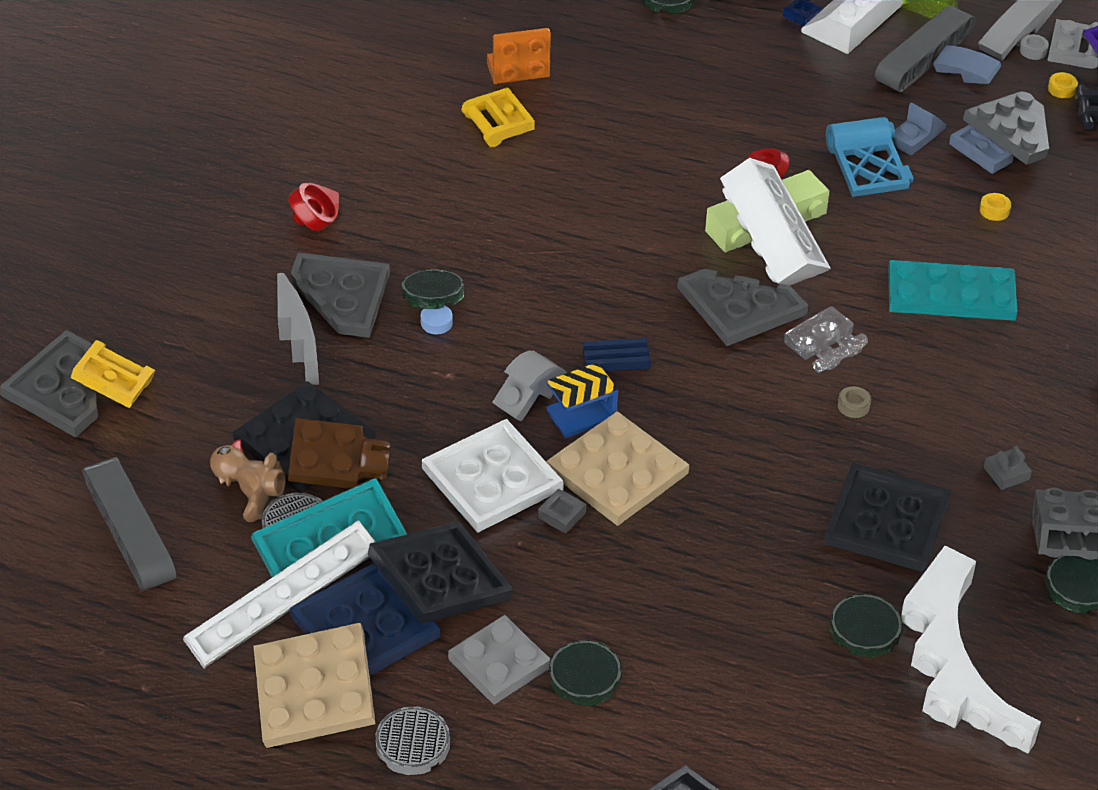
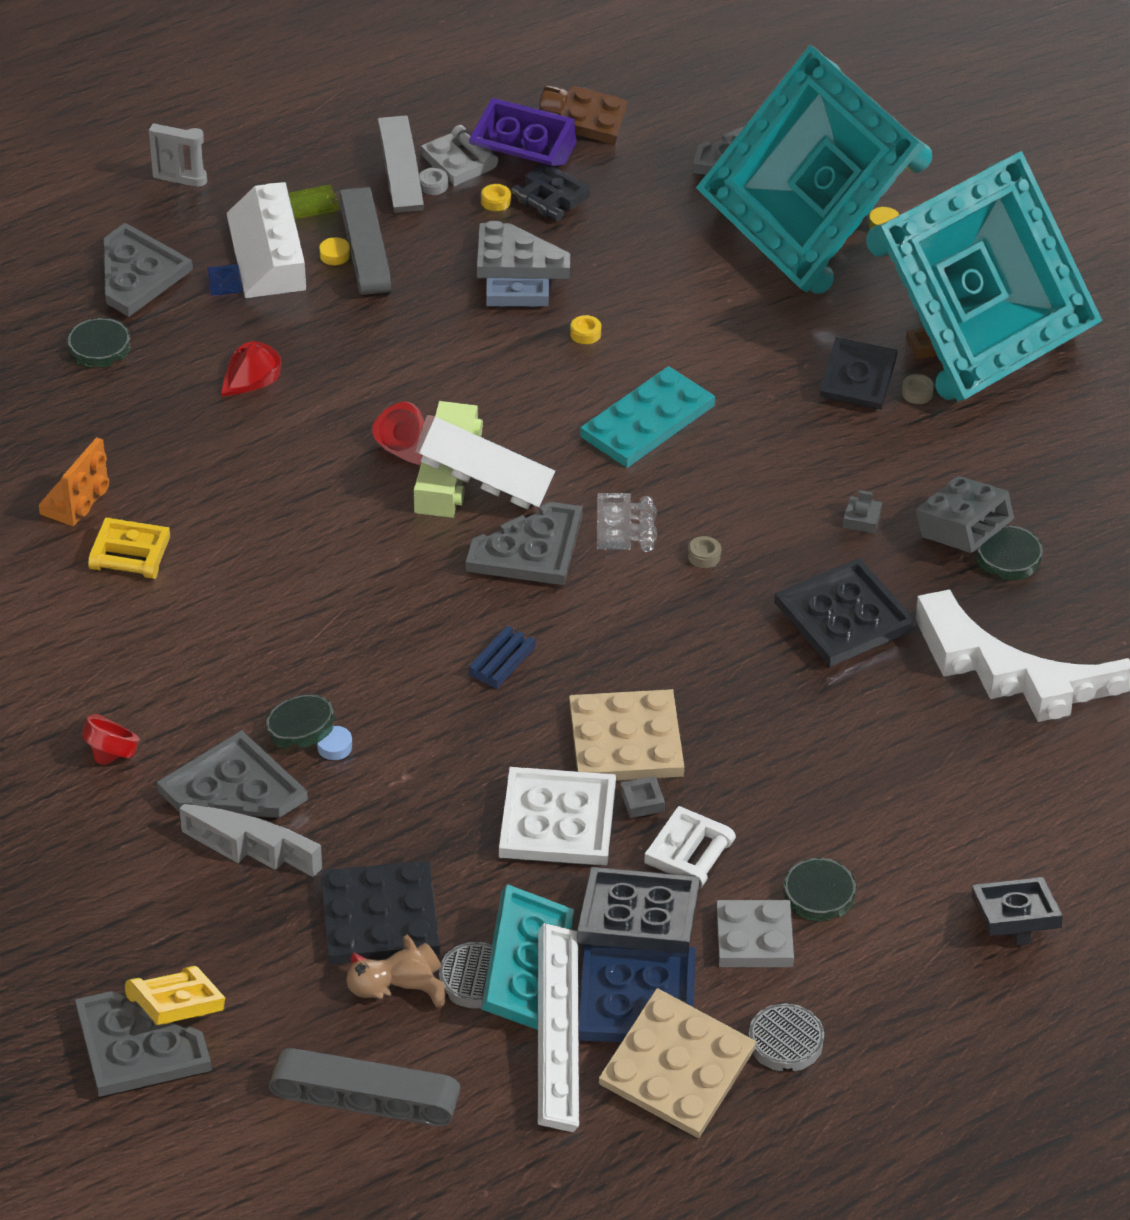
camera: 50 degrees left, 0 degrees up
(335, 454) = (438, 899): reddish brown plate -> none
(525, 382) = (487, 730): light grey brick -> none
(542, 558) = (681, 838): none -> white plate
(584, 399) = (540, 707): piece -> none
(735, 72) = (251, 368): none -> red piece
(862, 140) = (426, 350): dark azure piece -> none
(865, 625) = (933, 696): tile -> none
(895, 39) = (334, 251): none -> yellow tile
(917, 130) = (450, 313): sand blue slope -> none
(972, 65) = (418, 227): sand blue slope -> none

